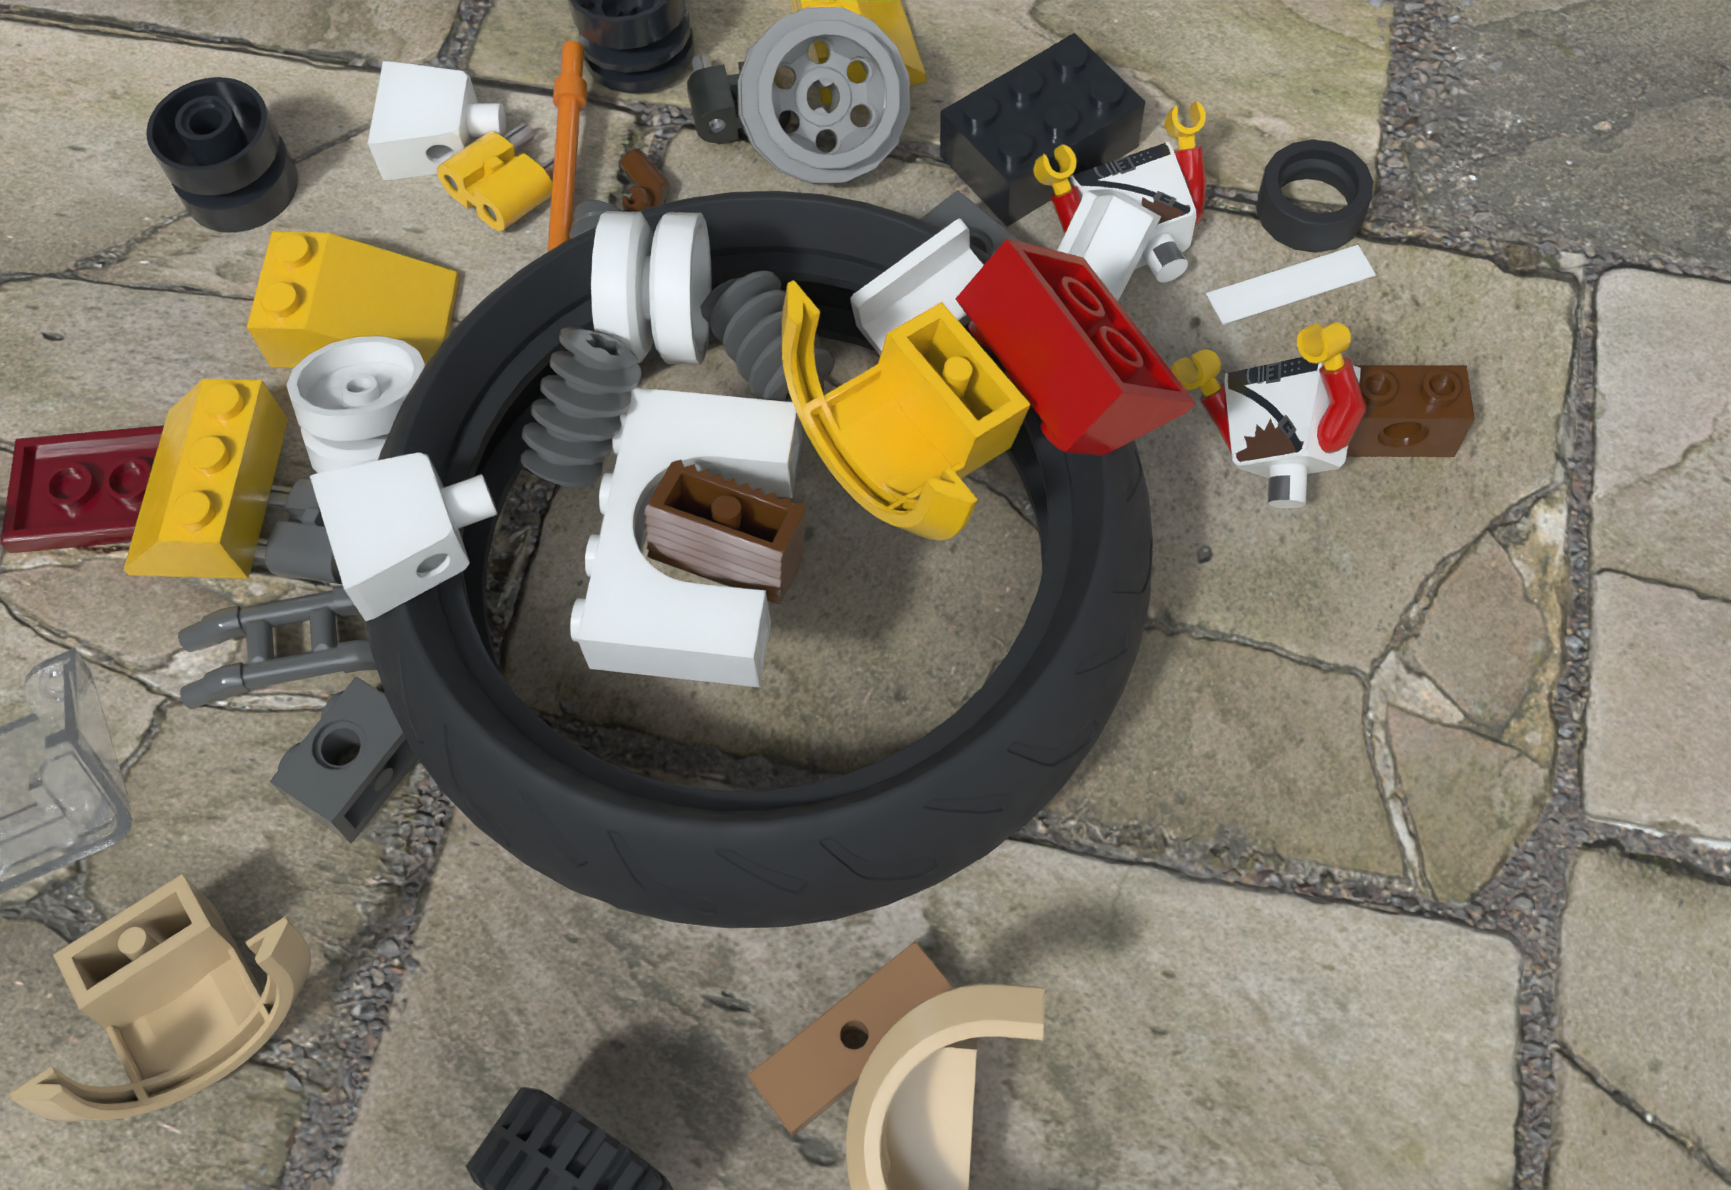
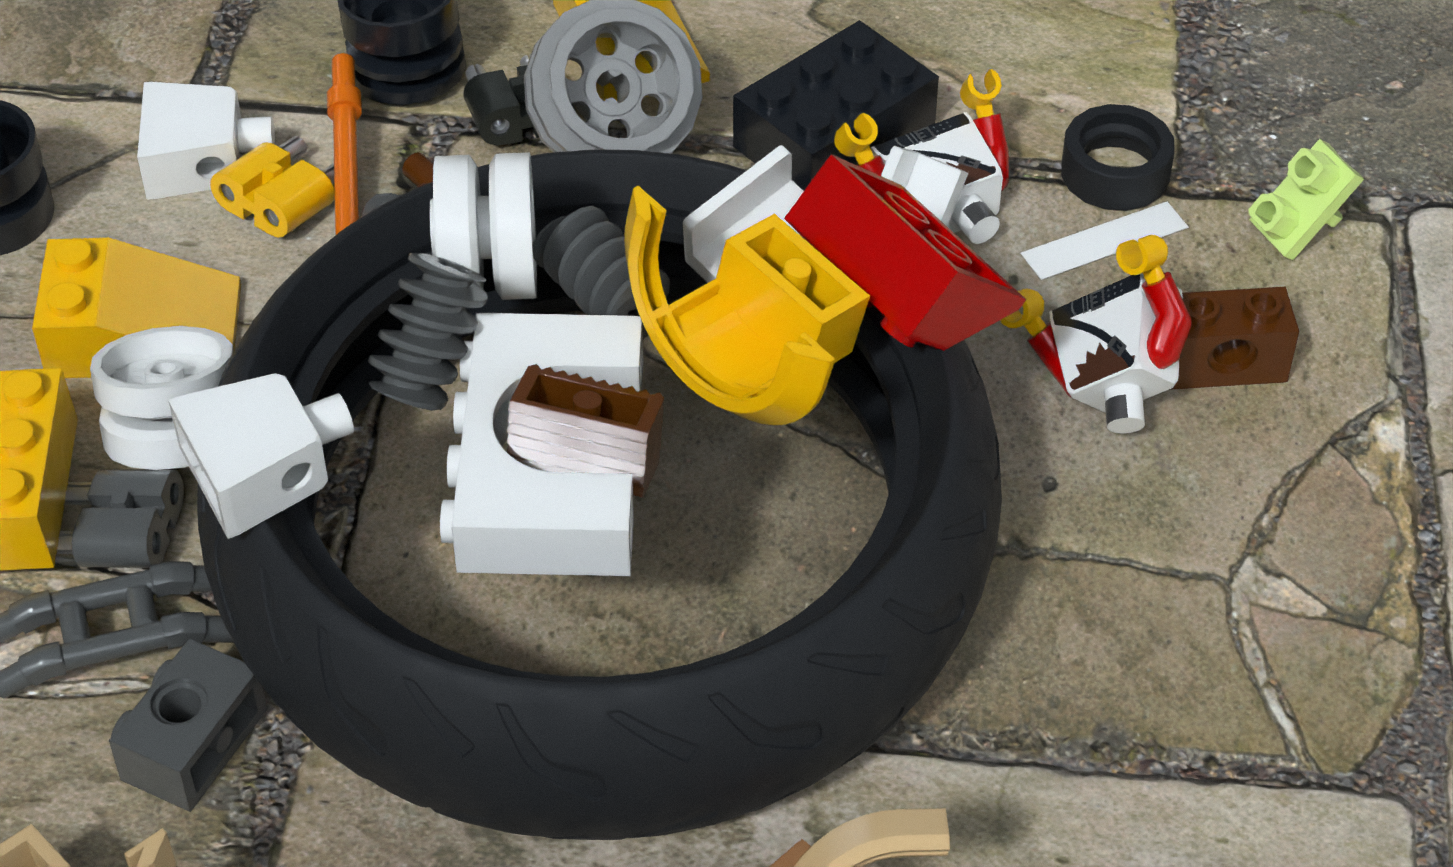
camera: 10 degrees left, 15 degrees down
(1499, 260) = (1305, 199): none -> yellowish green hips

